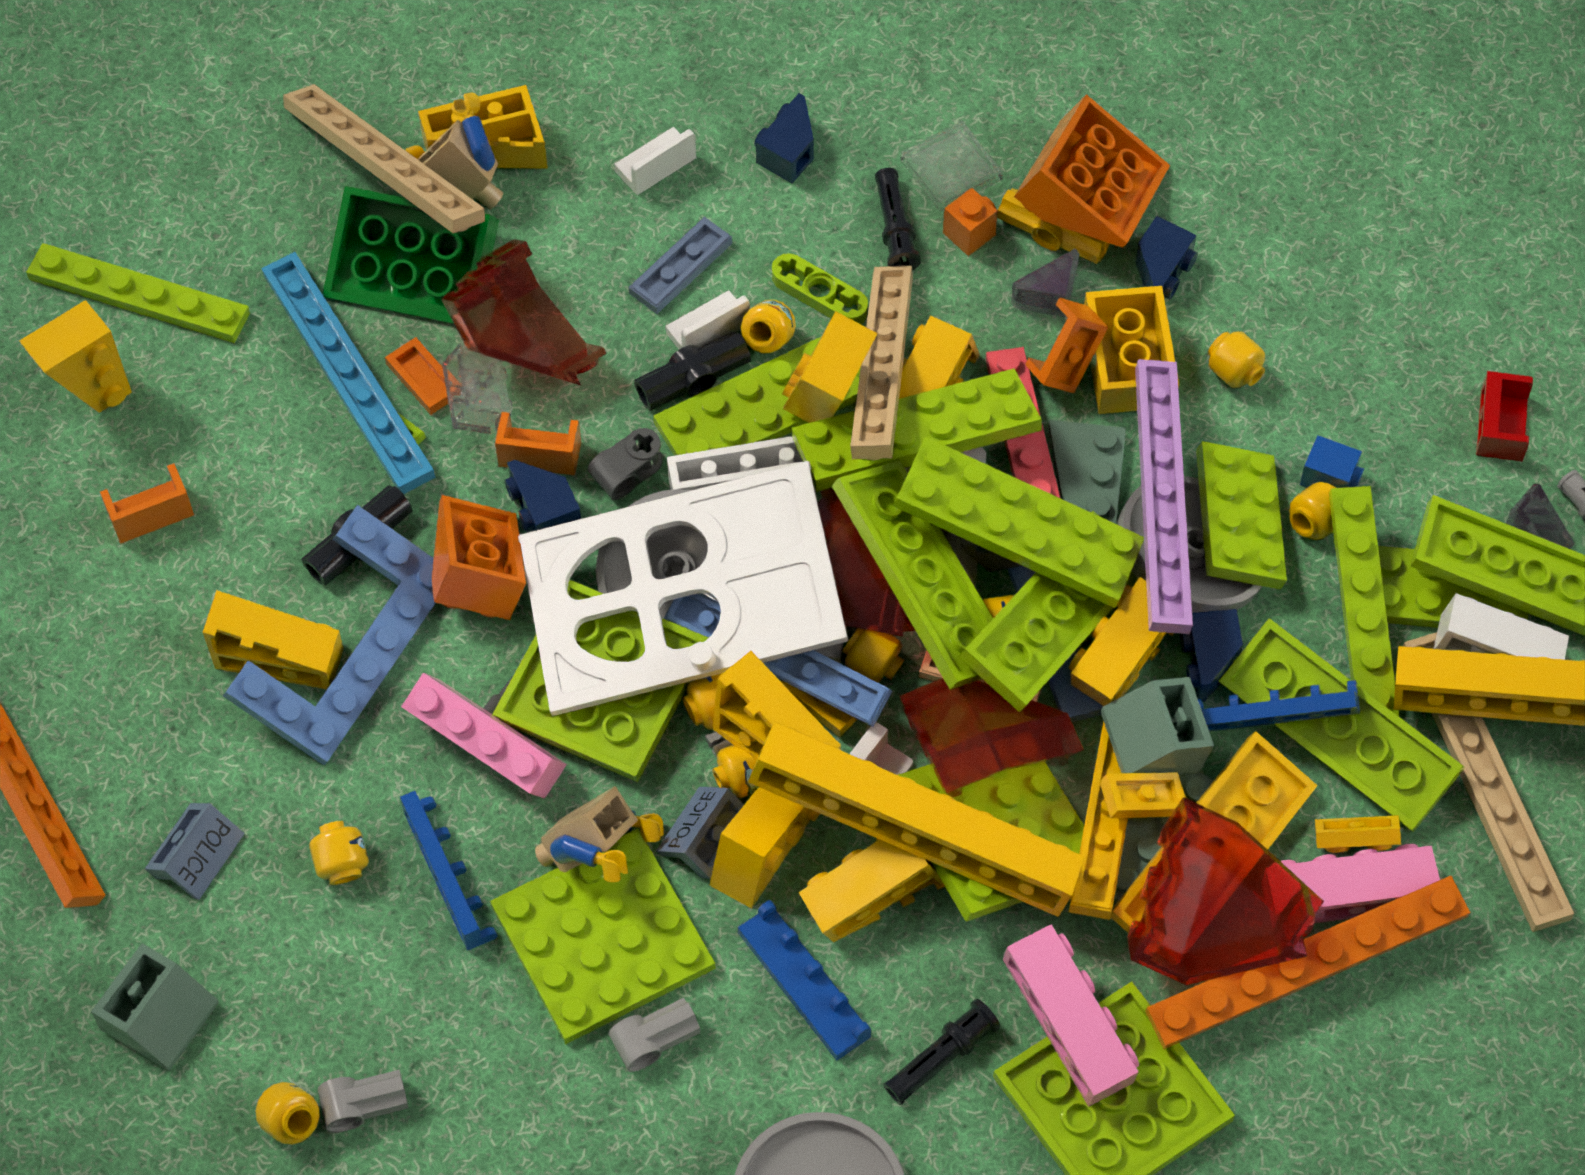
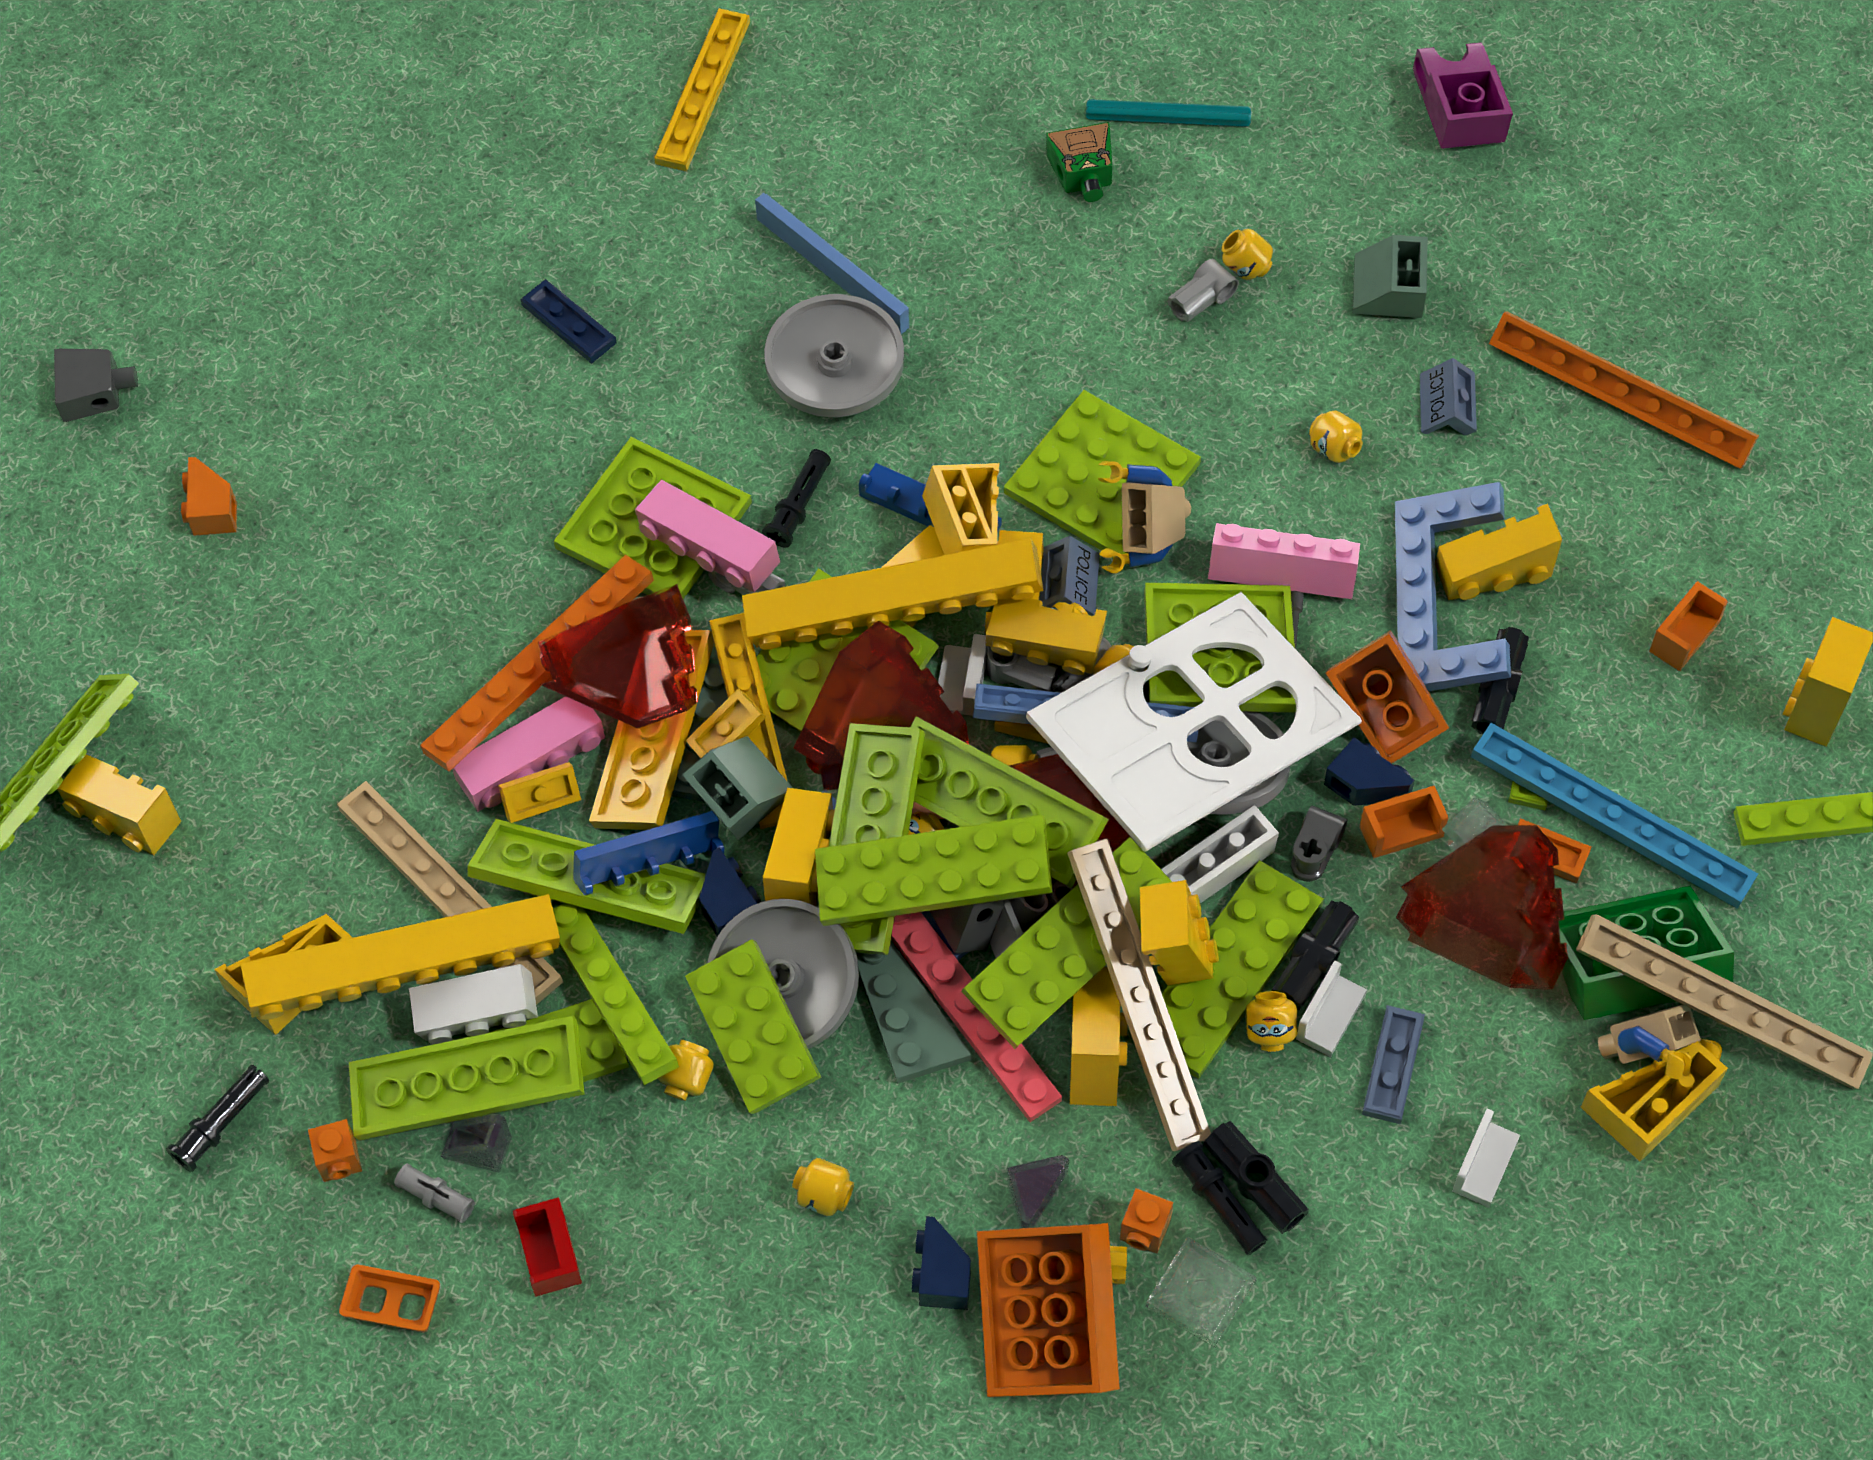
camera: 155 degrees right, 0 degrees up
(443, 872) = (1251, 460): blue hinge -> none
(645, 1038) = (1023, 413): light grey piece -> none
(788, 142) = (1368, 1233): dark blue slope -> none
(788, 899) = (963, 505): none -> yellow wedge
(811, 276) = (1263, 1084): lime beam -> none
(853, 203) = (1272, 1194): none -> black piece
(1072, 349) = (981, 1106): orange panel -> none
(1135, 331) = (927, 1145): yellow brick -> none
(1163, 497) = (823, 967): lavender plate -> none
(1332, 464) = (689, 1117): blue brick -> none

